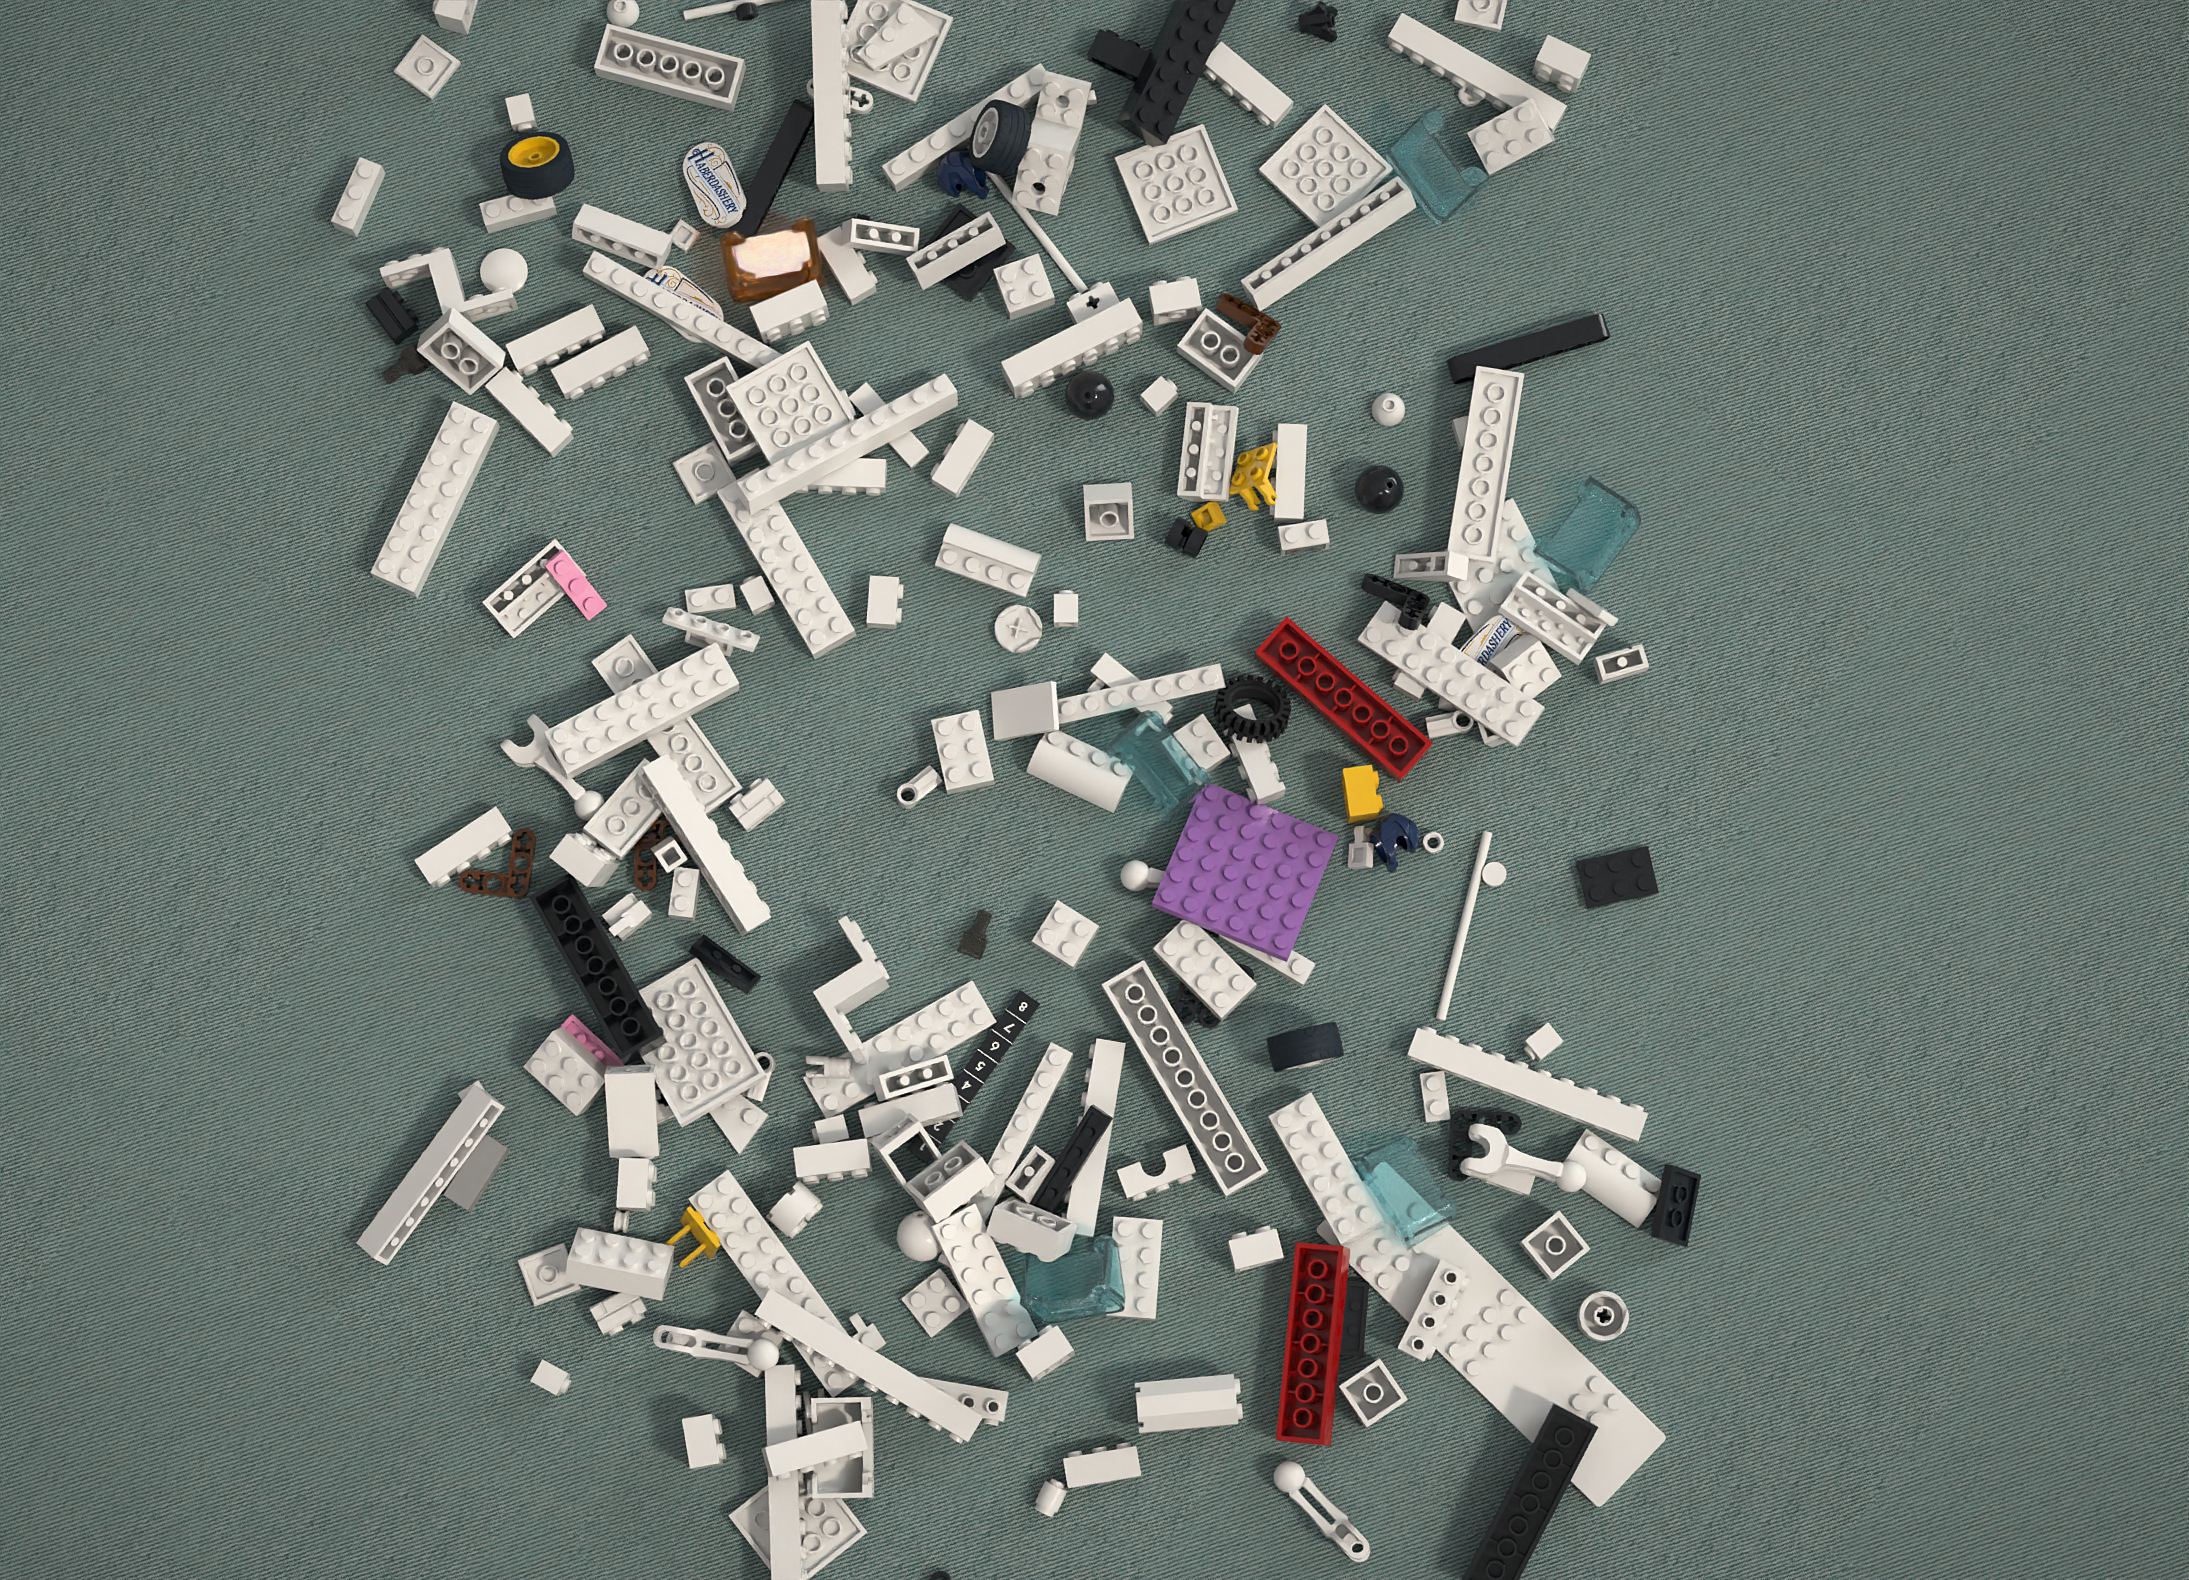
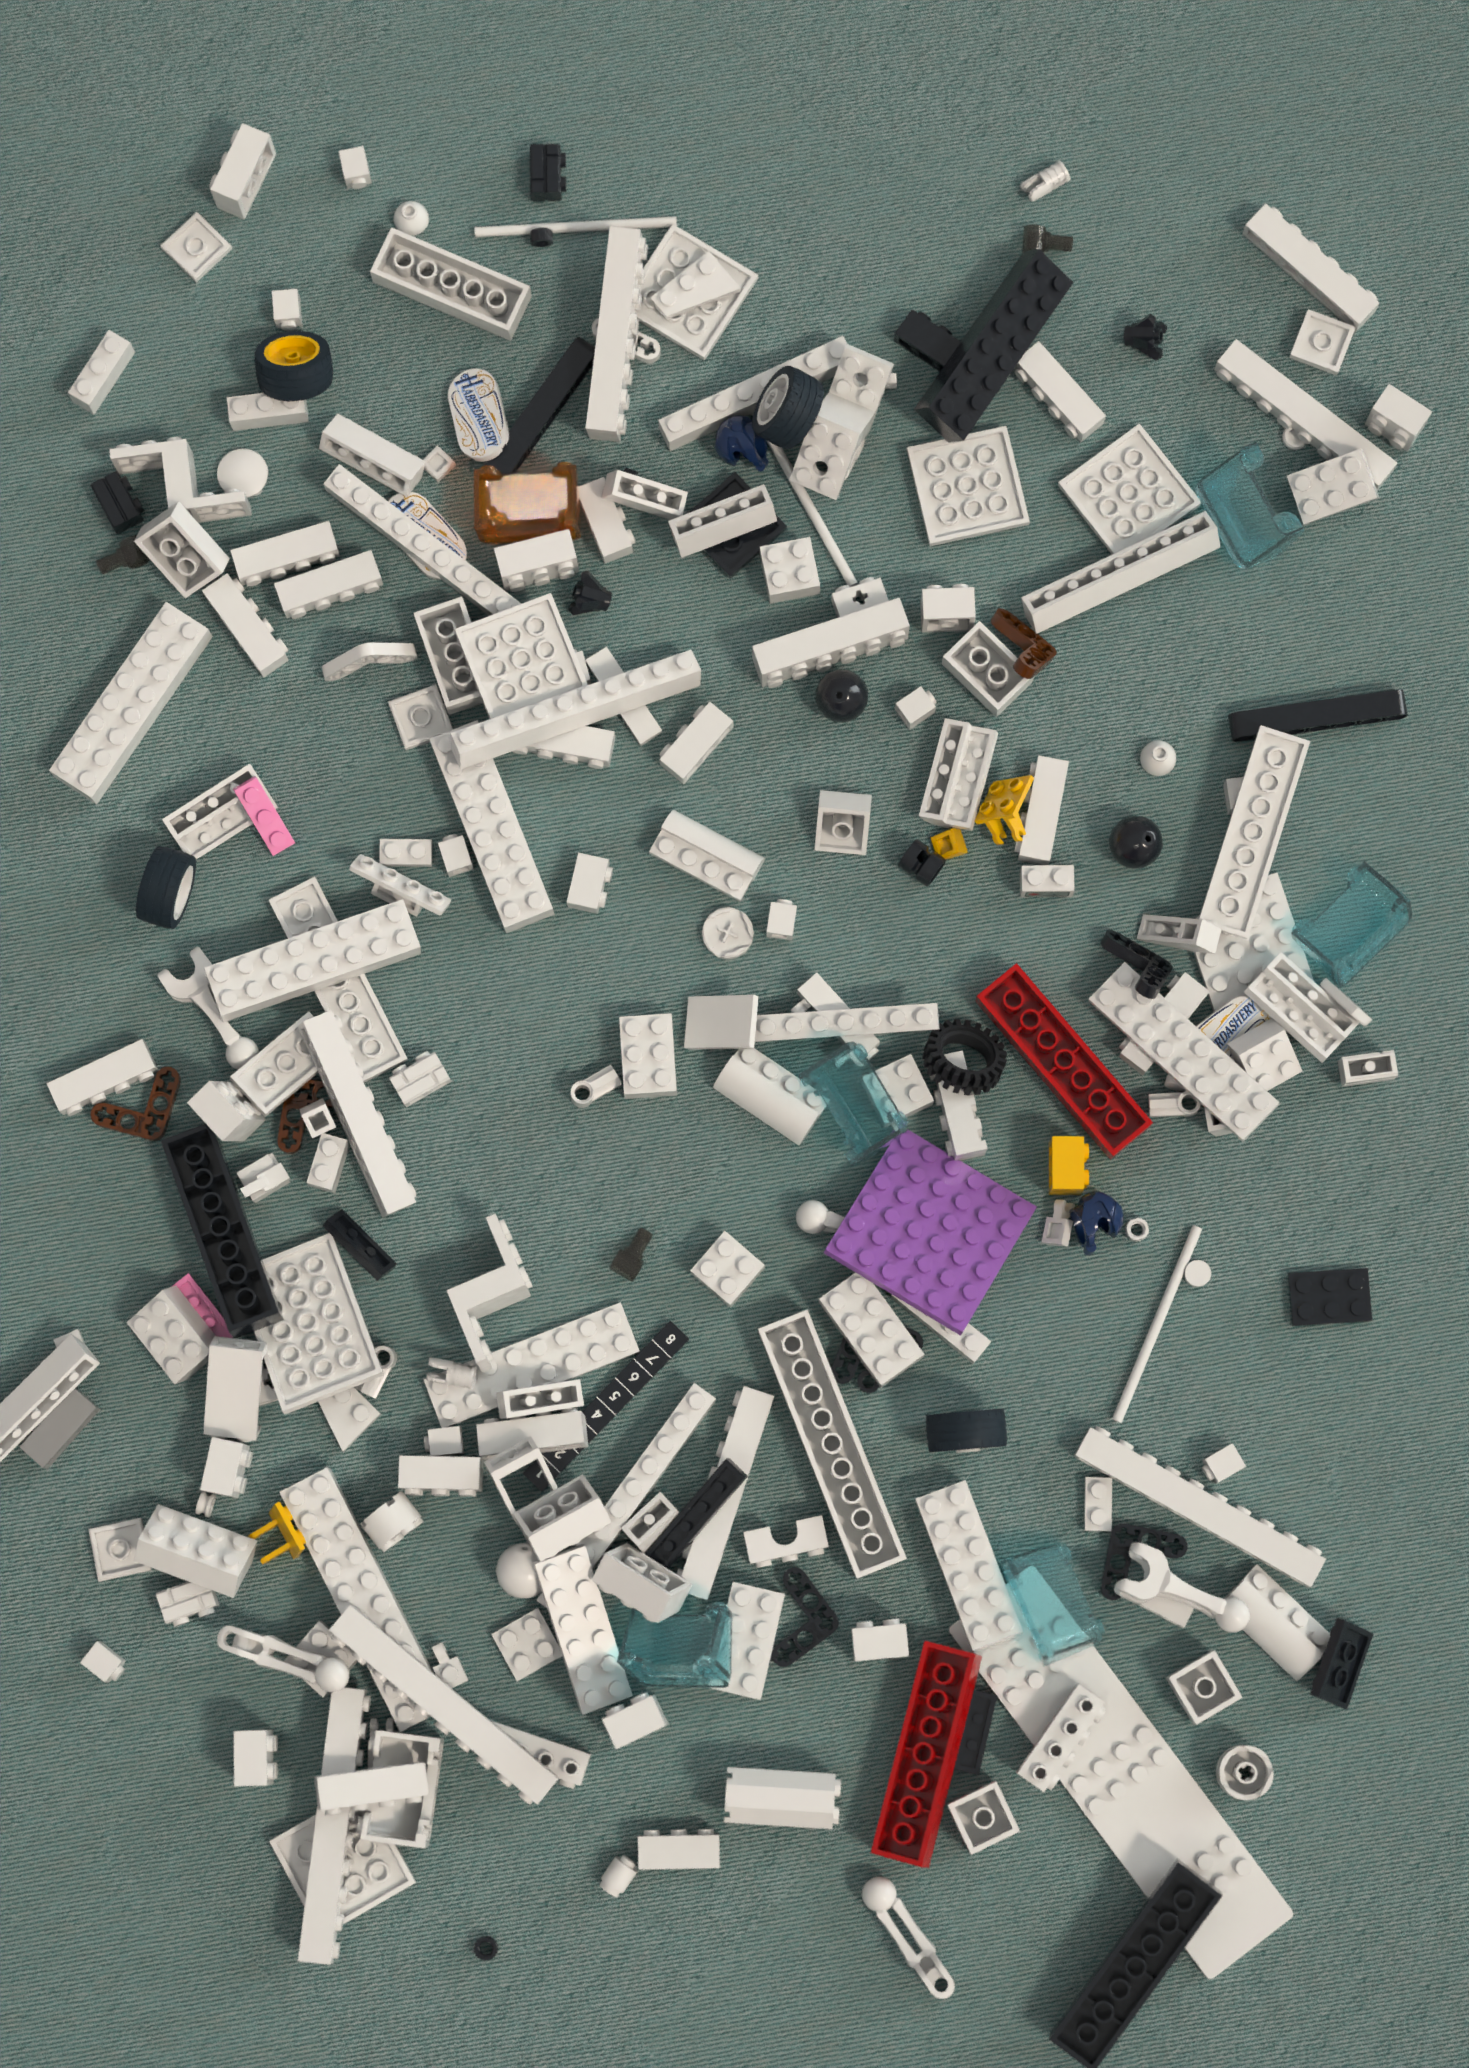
camera: 10 degrees right, 0 degrees up
(496, 664) = (165, 887): none -> black wheel
(645, 422) = (368, 653): none -> white beam
(843, 337) = (589, 595): none -> black rock
(1192, 1245) = (811, 1626): none -> black beam

